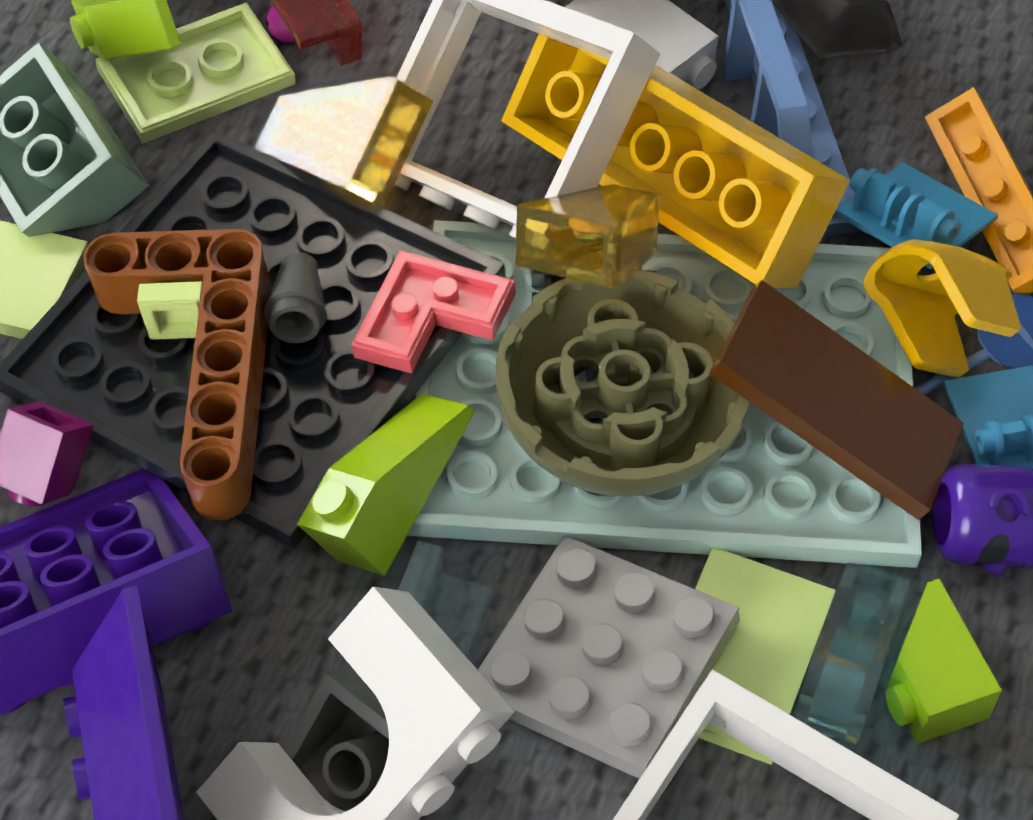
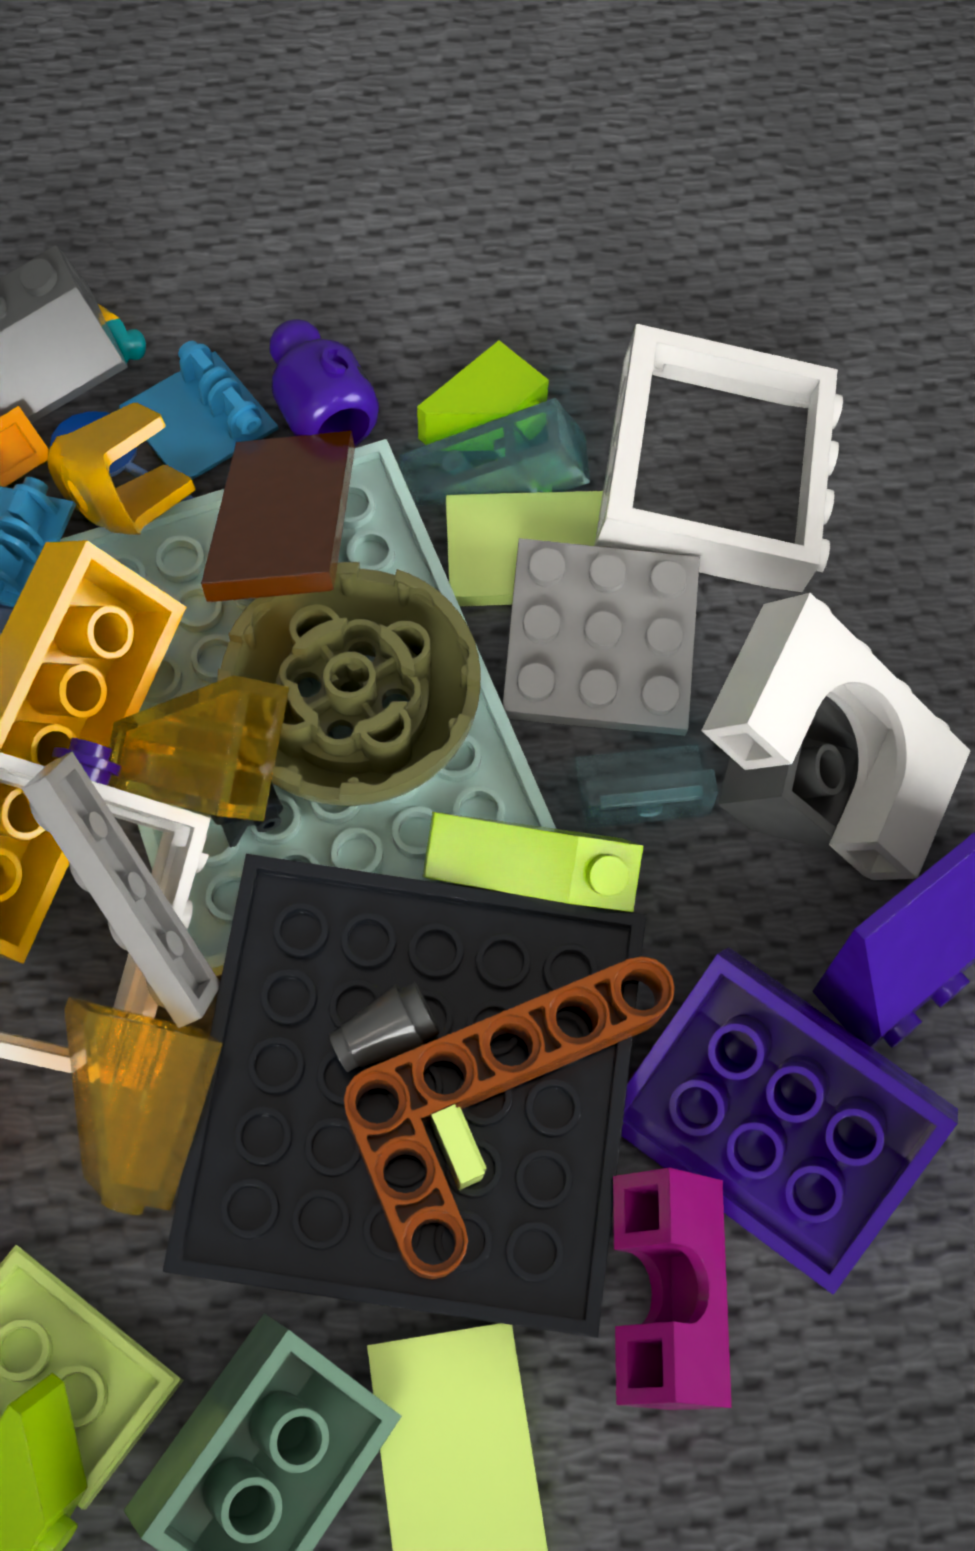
camera: 115 degrees left, 10 degrees up
(427, 295) = (328, 911): coral tile -> none
(490, 134) = (123, 888): none -> light grey plate
(623, 157) = (93, 759): none -> dark purple plate

